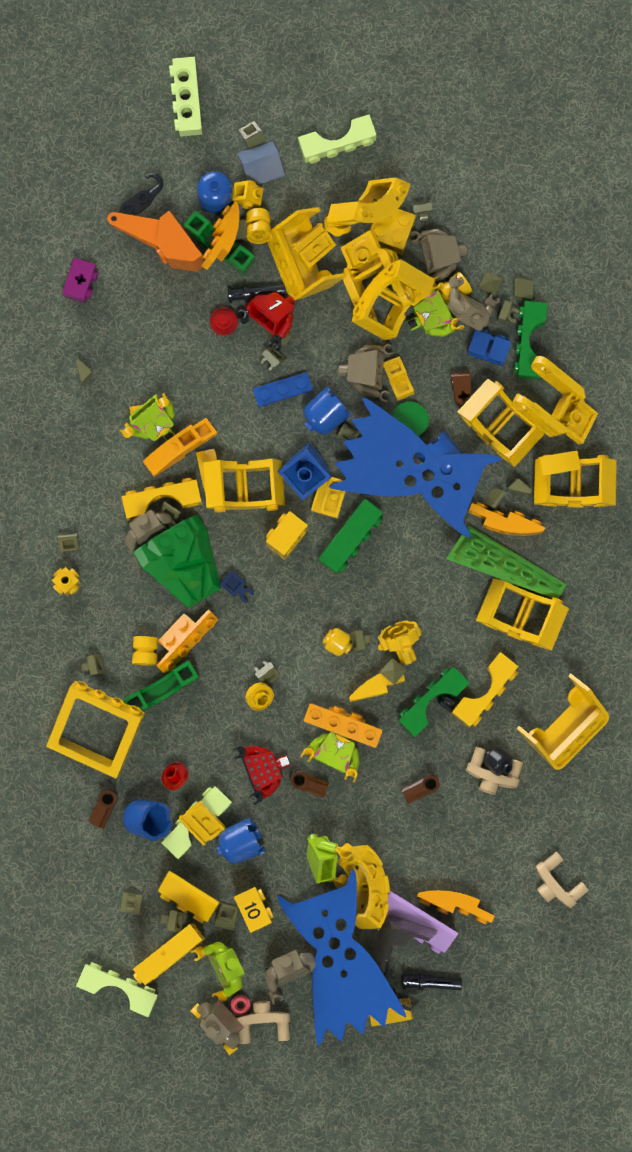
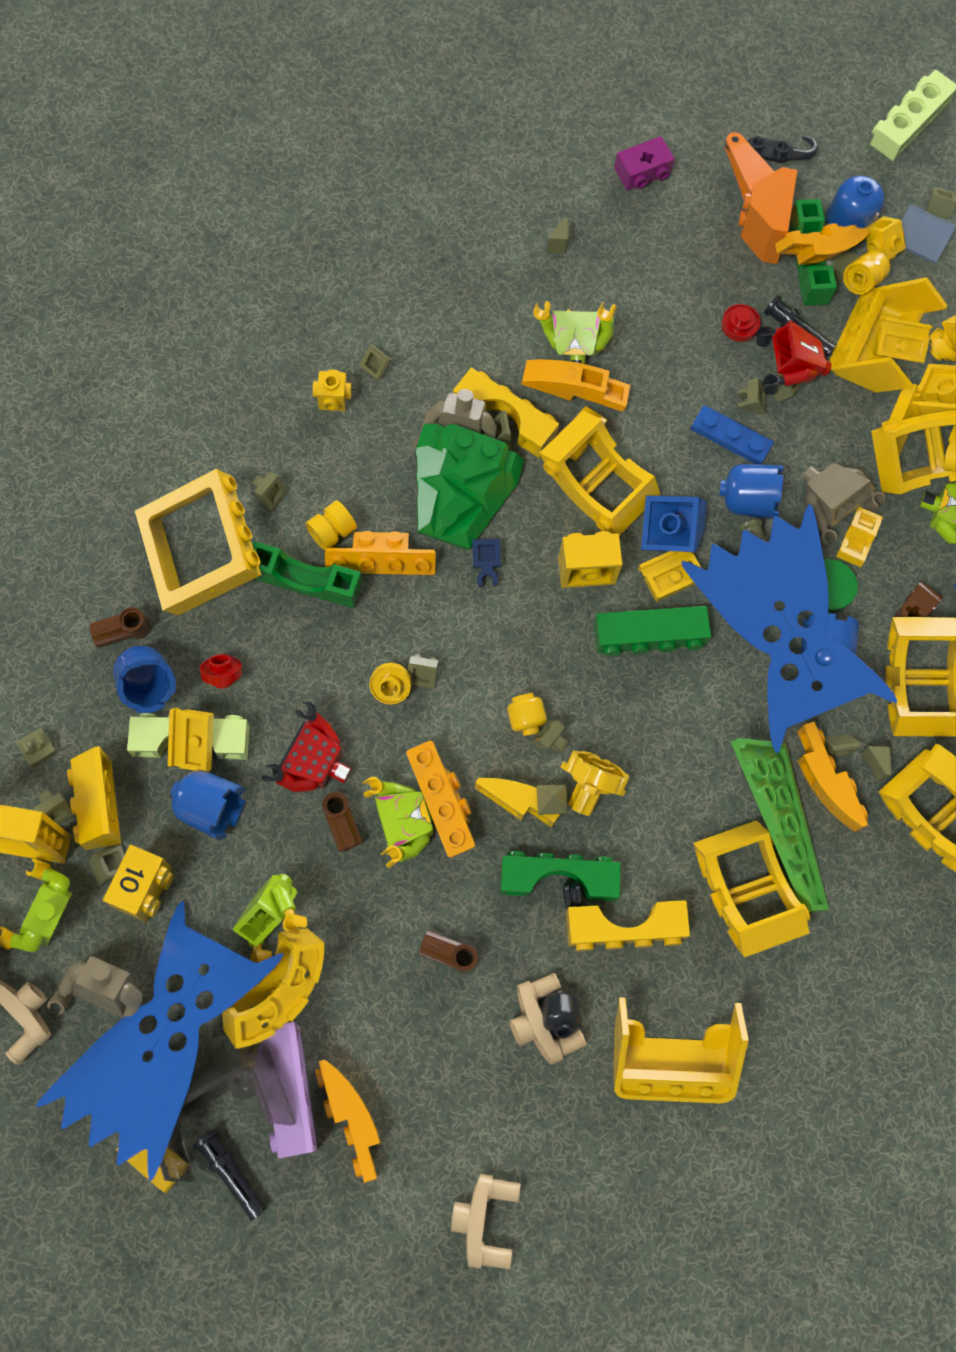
camera: 40 degrees right, 10 degrees down
(235, 1009) = (6, 970): coral plate -> none

